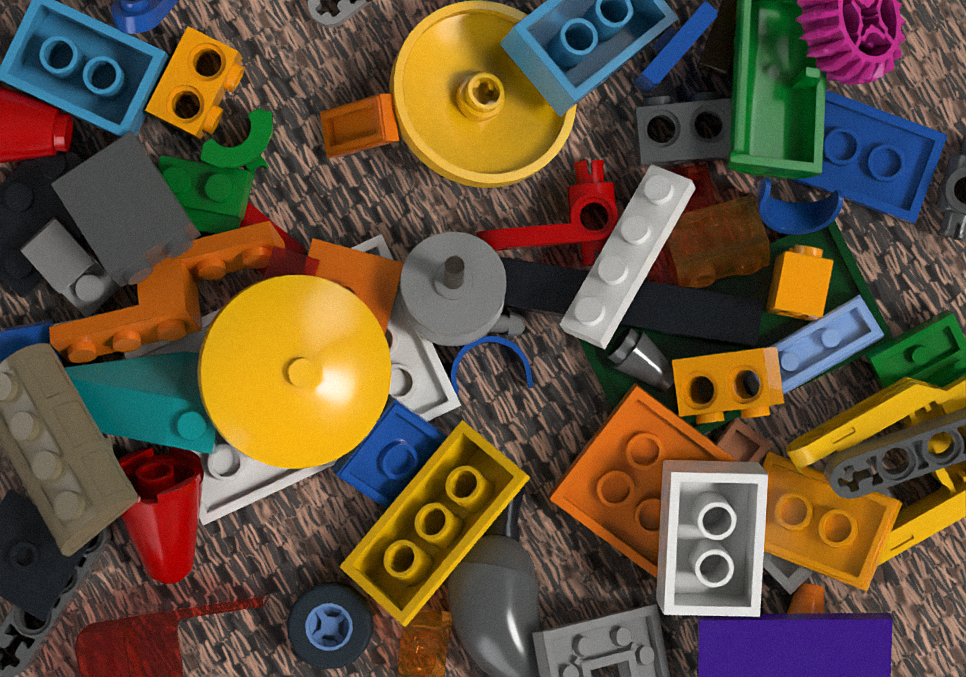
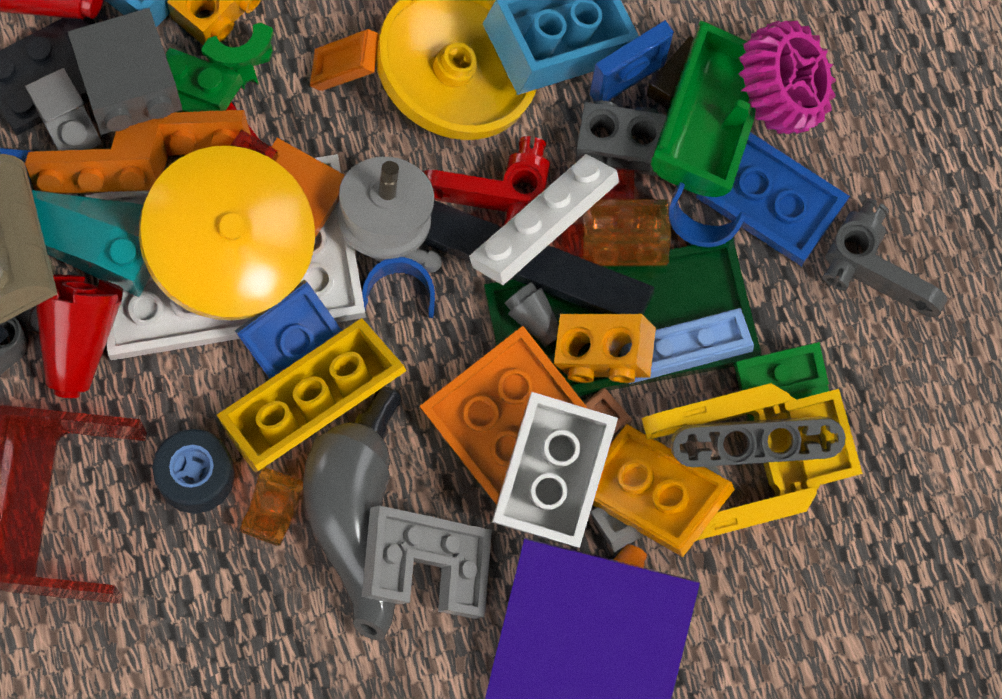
camera: 10 degrees right, 15 degrees down
(799, 283) = (687, 277): light orange brick -> none

